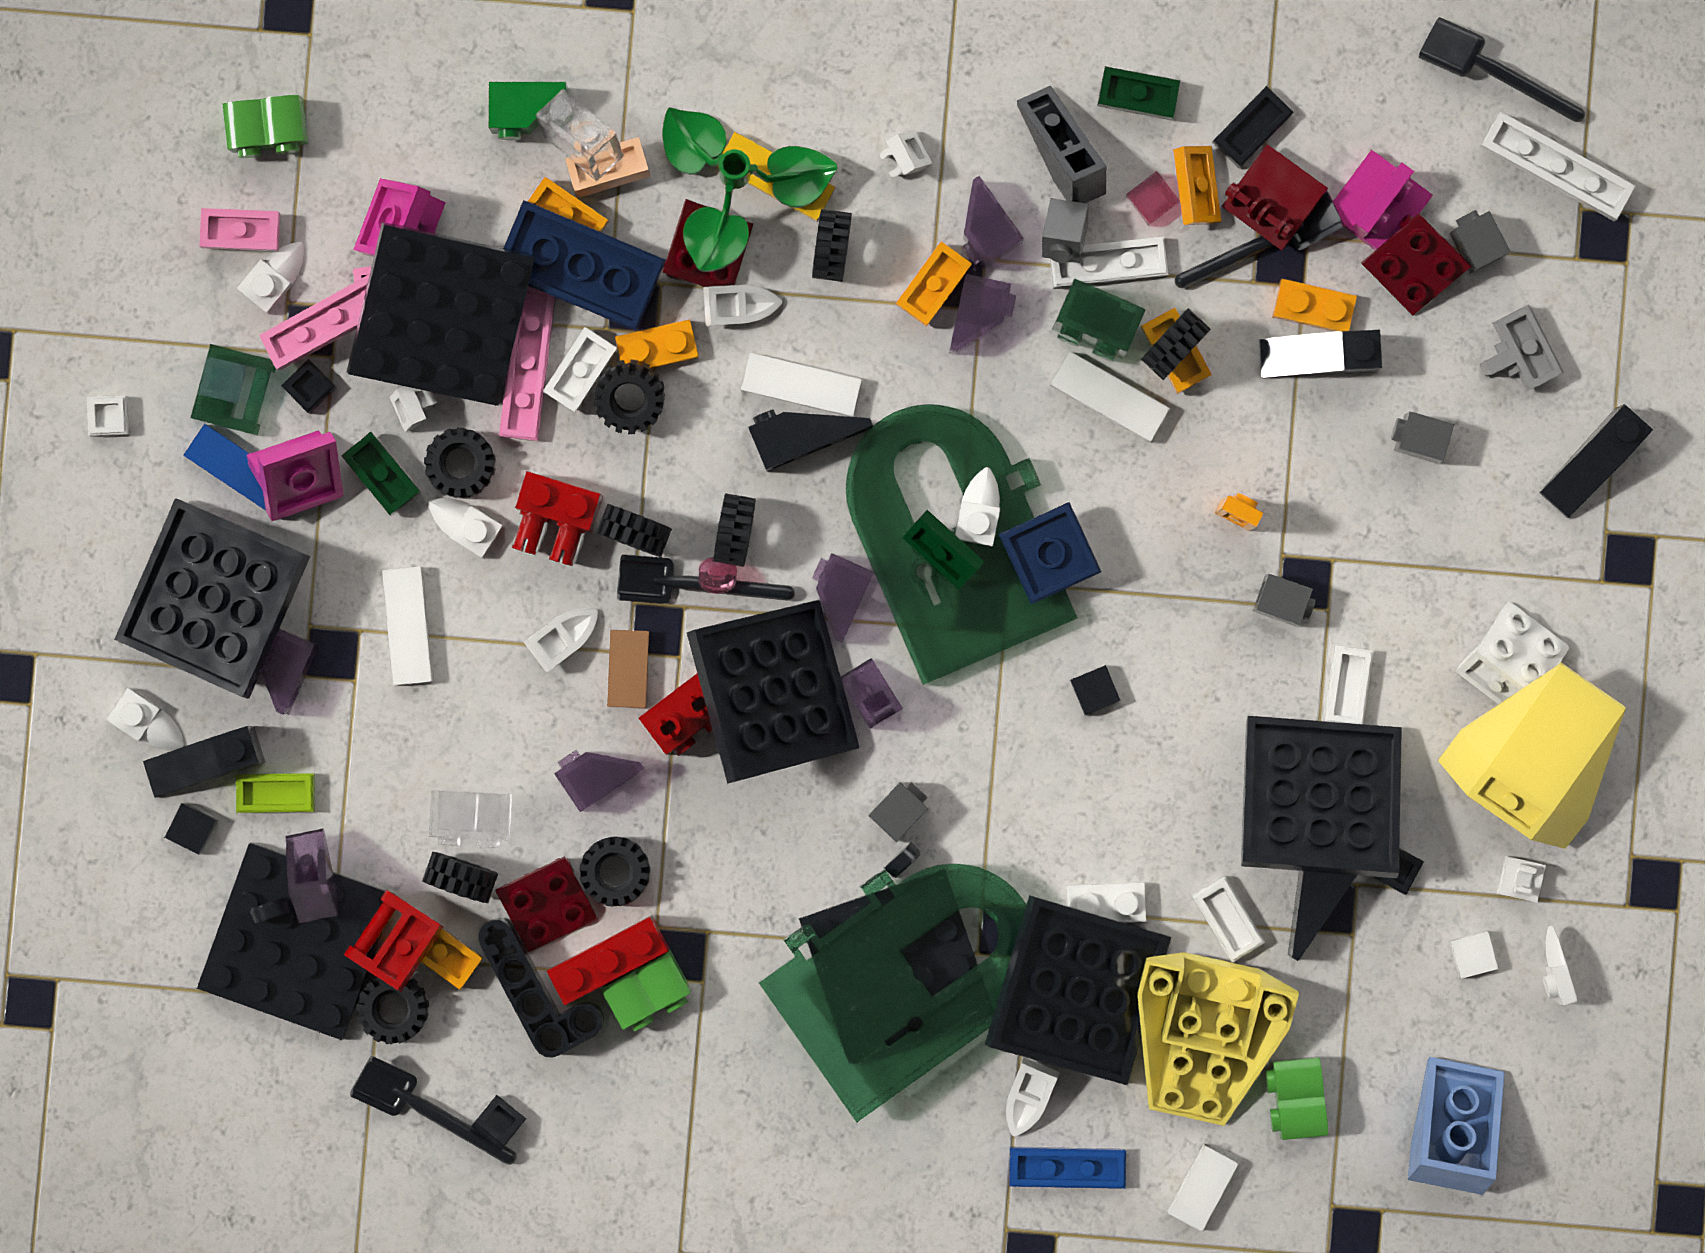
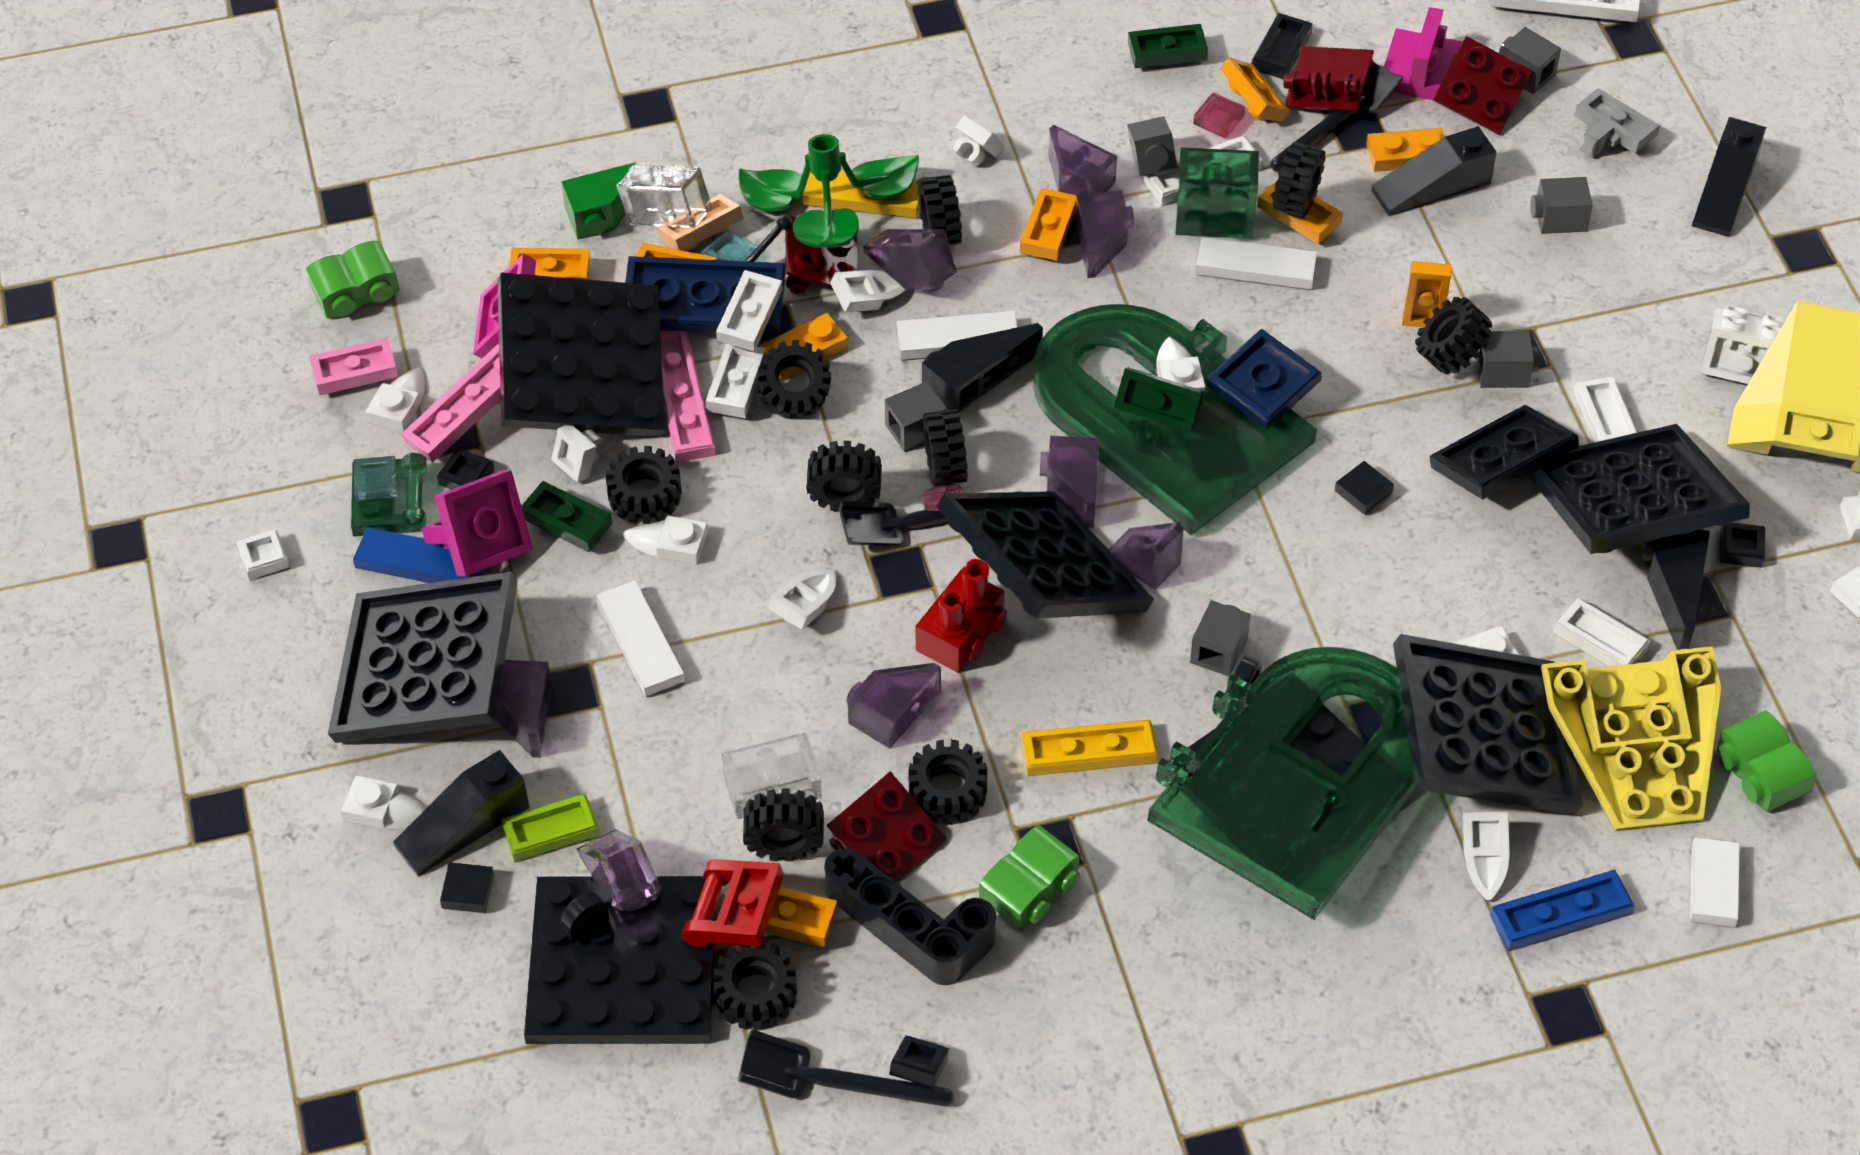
camera: 15 degrees left, 35 degrees down
(451, 171) = (557, 261): none -> light orange plate
(553, 500) = (758, 485): red brick -> none
(608, 960) = (967, 858): red brick -> none
(610, 314) = (749, 310): none -> white plate
(625, 208) = (729, 248): none -> clear light blue tile
(628, 669) = (885, 607): medium nougat tile -> none
(678, 214) = (783, 223): none -> black hinge
(728, 474) = (906, 411): none -> dark grey brick
(747, 874) = (1089, 747): none -> yellow tile
(787, 287) = (913, 257): none -> clear purple slope
(1064, 147) = (1122, 95): black slope -> none
(1232, 703) = (1504, 451): none -> black tile
(1256, 575) = (1453, 335): none -> black tyre

